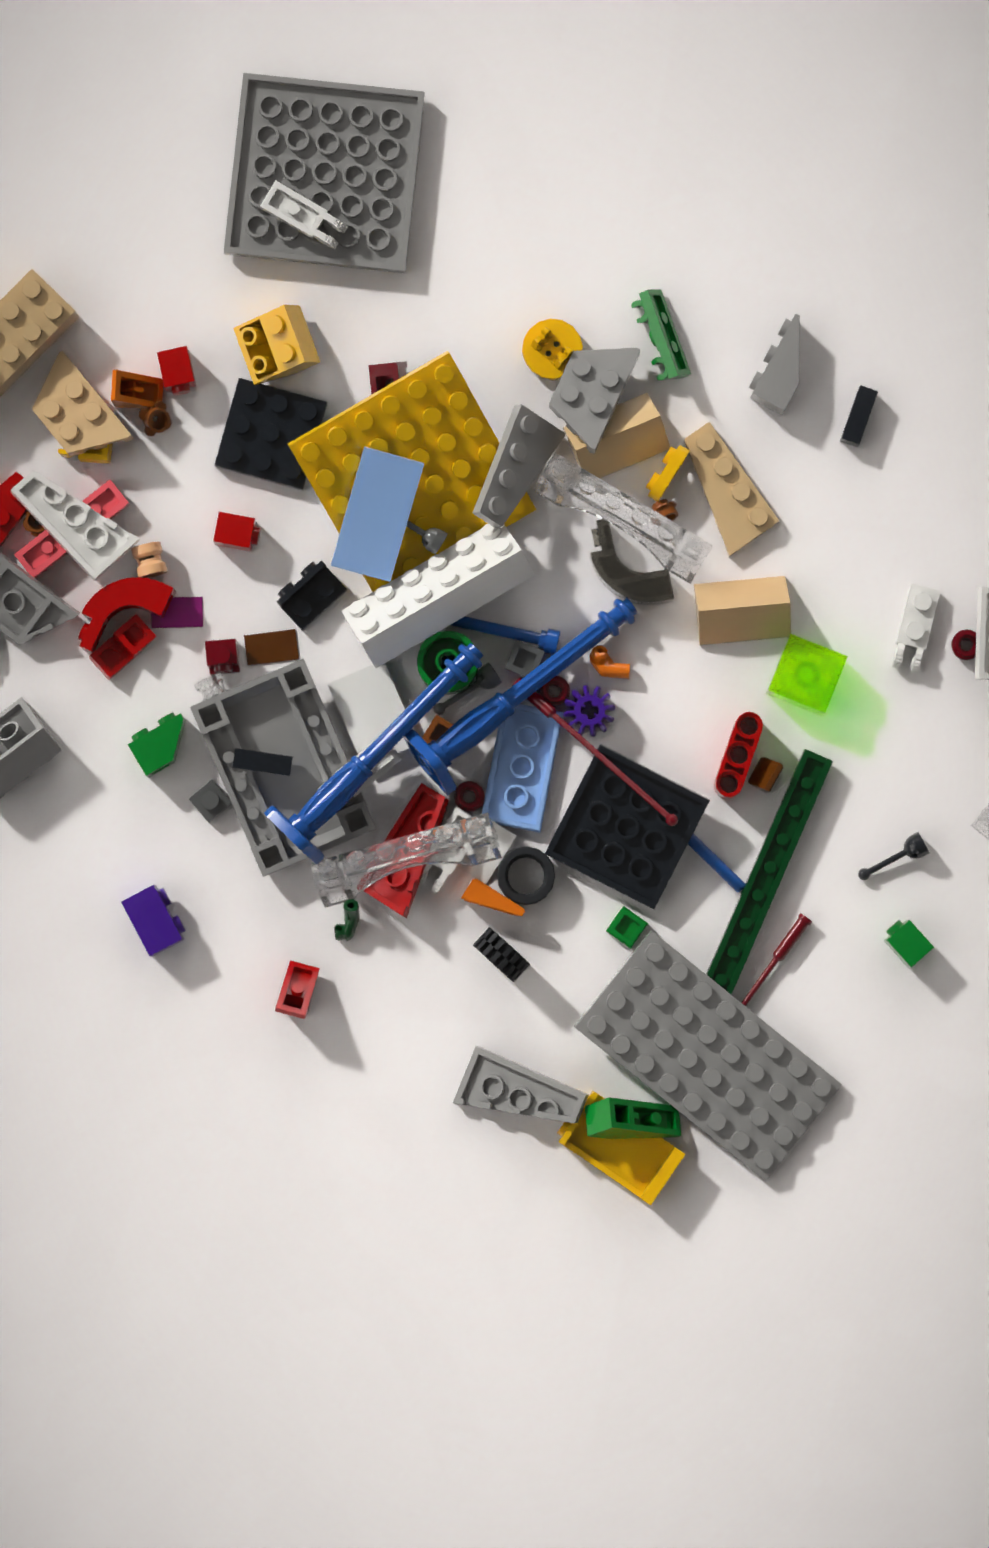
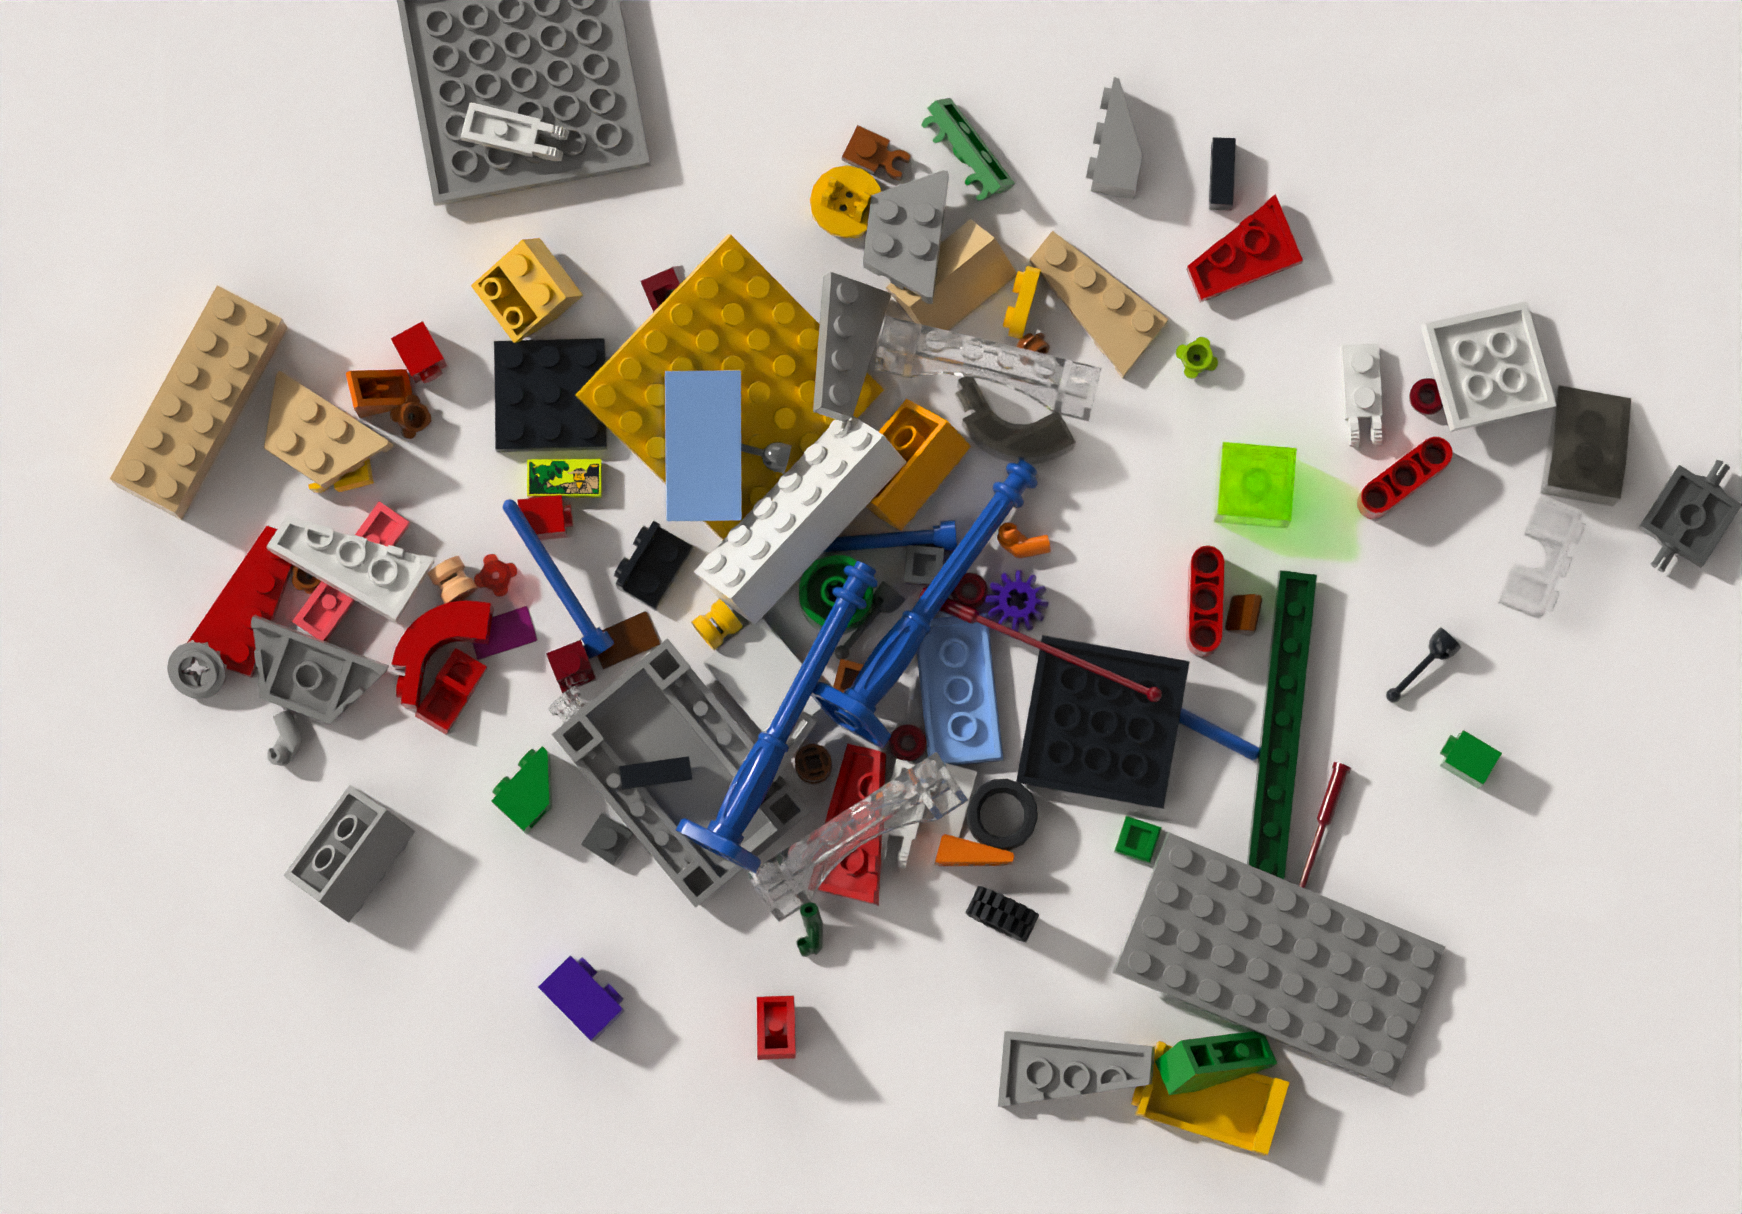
camera: 15 degrees left, 5 degrees down
(184, 556) = (499, 585): none -> clear red plate
(246, 639) = (594, 638): none -> blue piece
(262, 504) = (564, 477): none -> tile
(353, 654) = (724, 620): none -> yellow wheel
(389, 795) = (812, 770): none -> reddish brown wheel
(556, 572) = (931, 452): none -> light orange slope
(583, 314) = (870, 152): none -> dark orange plate
(742, 610) = (1158, 434): tan slope -> none
(798, 551) = (1199, 347): none -> lime plate
(859, 487) = (1247, 254): none -> red wing
(938, 694) = (1417, 465): none -> red beam

